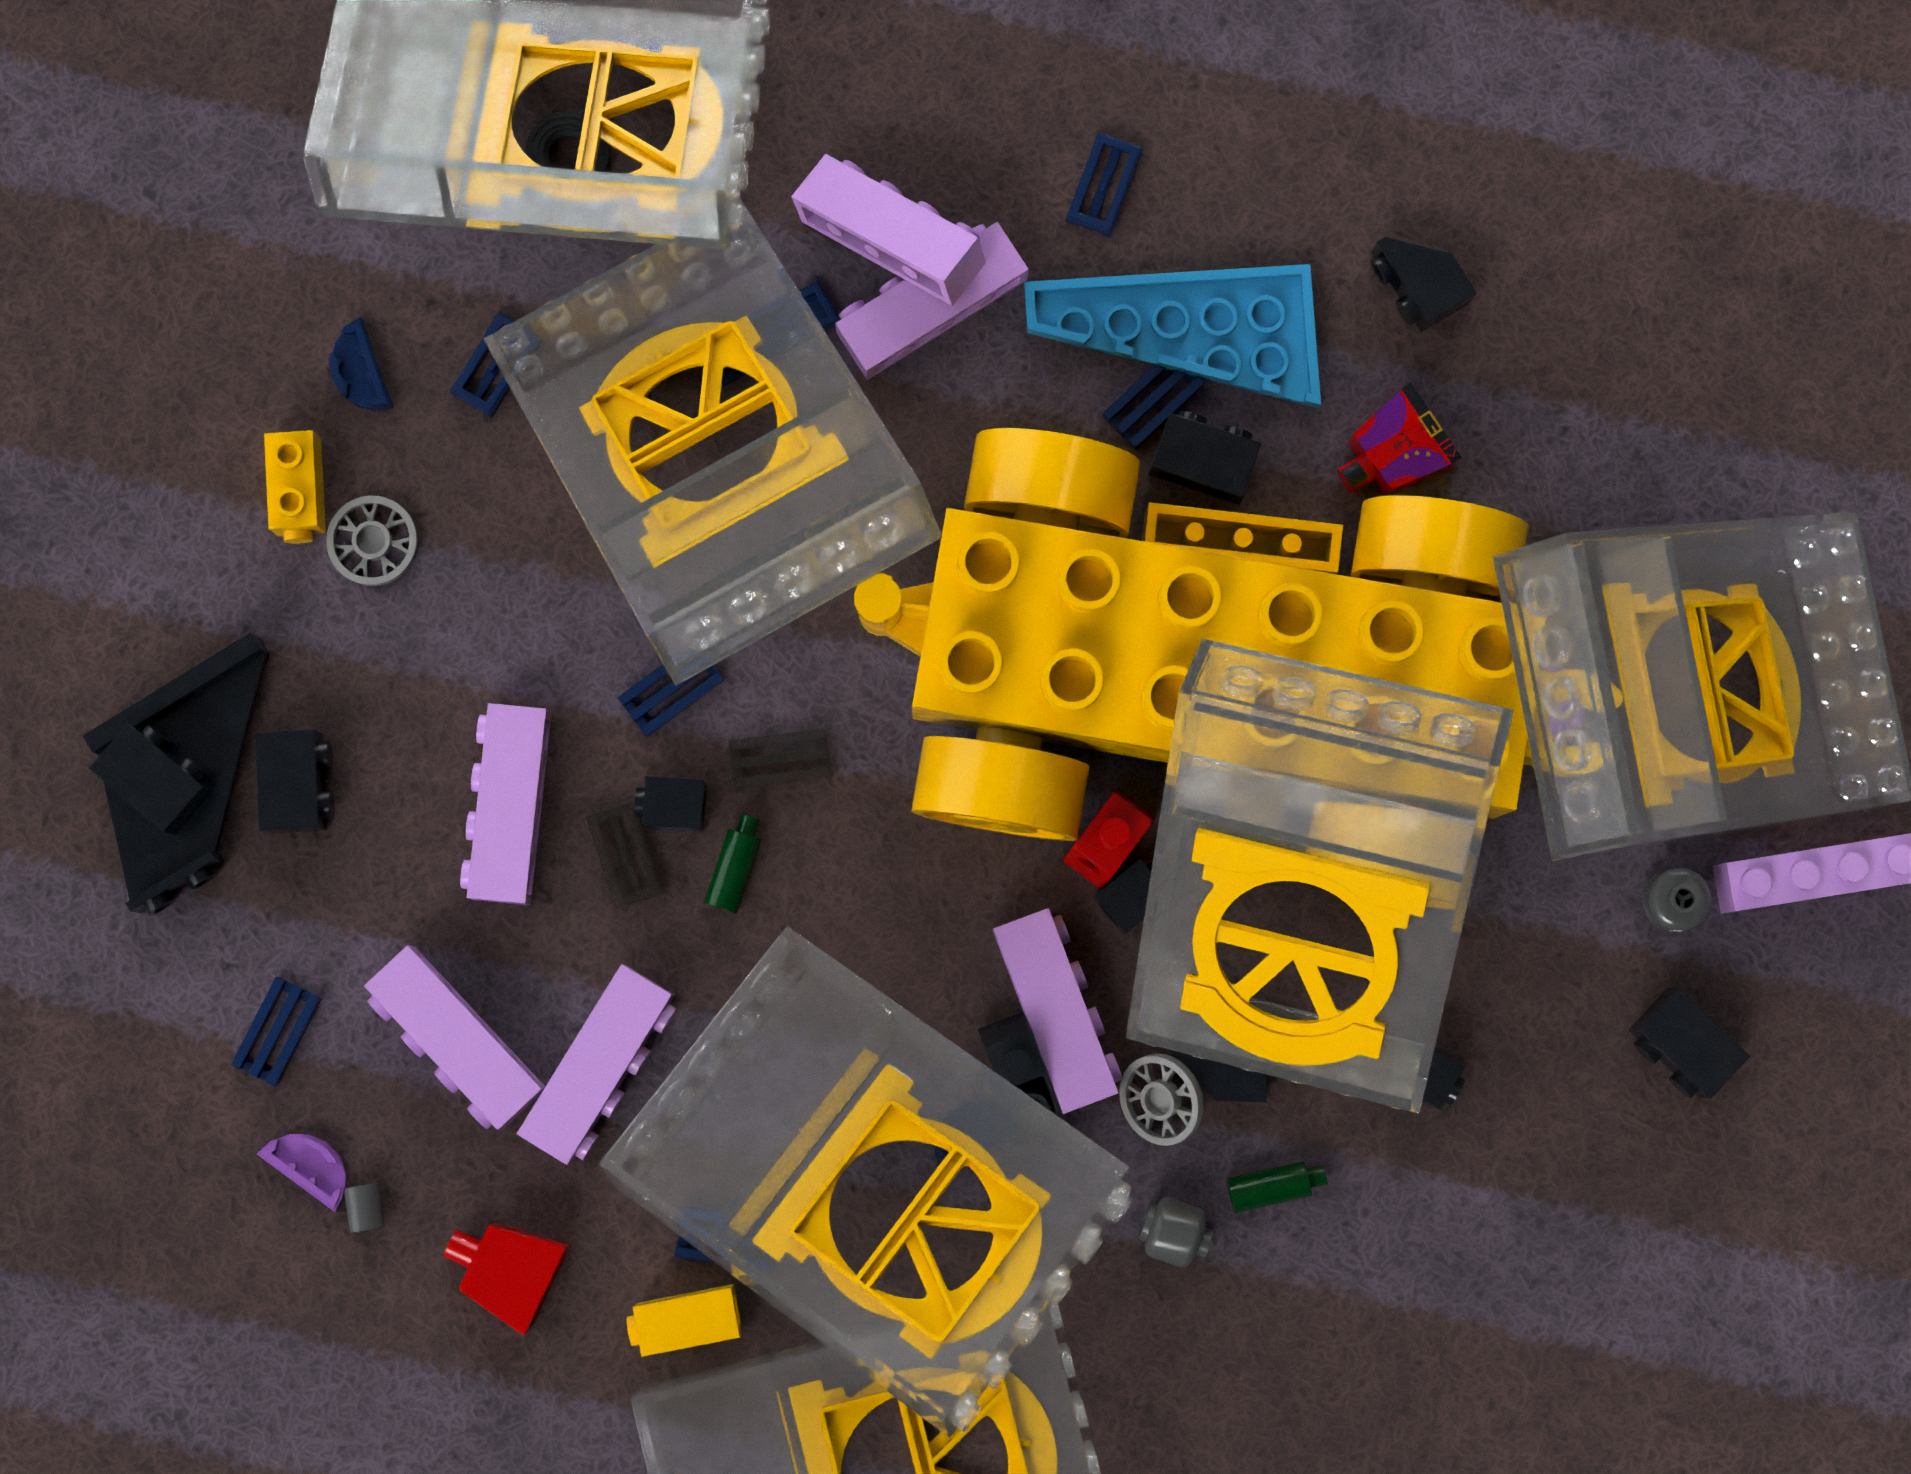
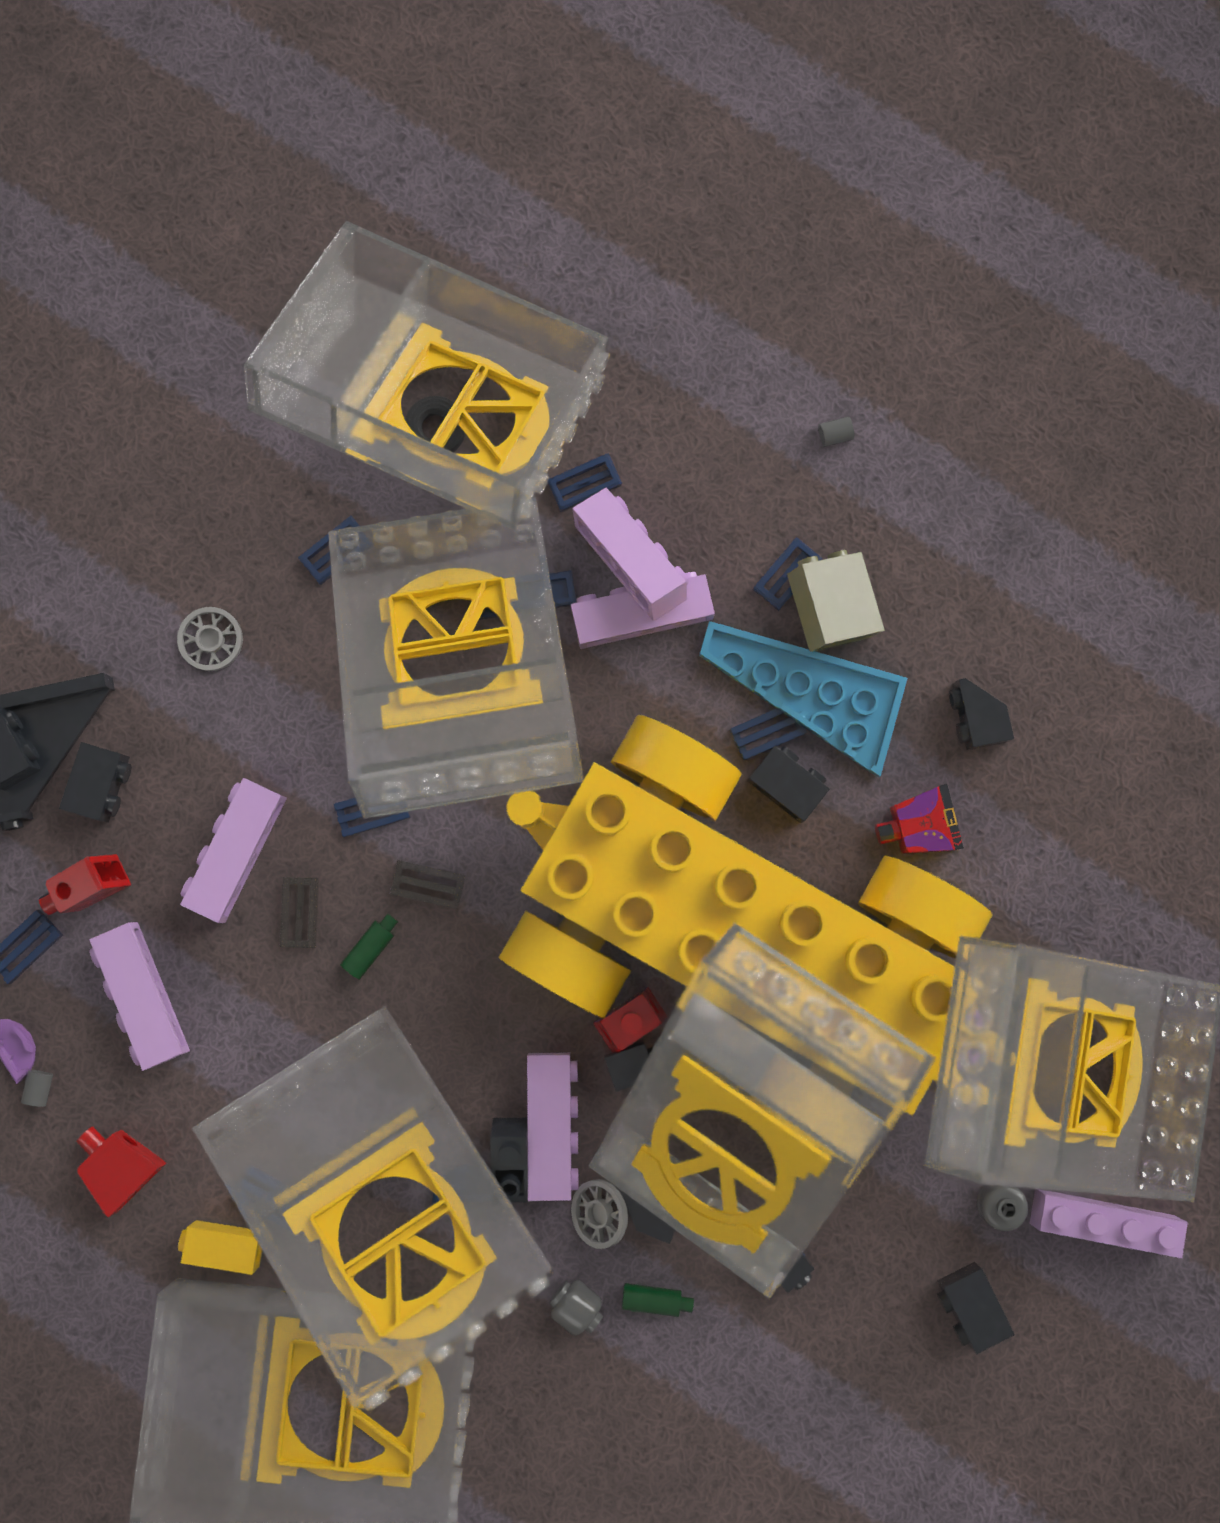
camera: 20 degrees right, 0 degrees up
(295, 485) = (171, 583): yellow brick -> none
(328, 919) = (84, 884): none -> red torso
(357, 370) = (242, 520): dark blue tile -> none
(596, 1065) = (226, 1049): lavender brick -> none
(671, 804) = (342, 890): black brick -> none
(764, 186) = (573, 501): none -> dark blue tile
(1179, 196) = (835, 600): none -> brick
(1246, 536) = (793, 851): yellow brick -> none

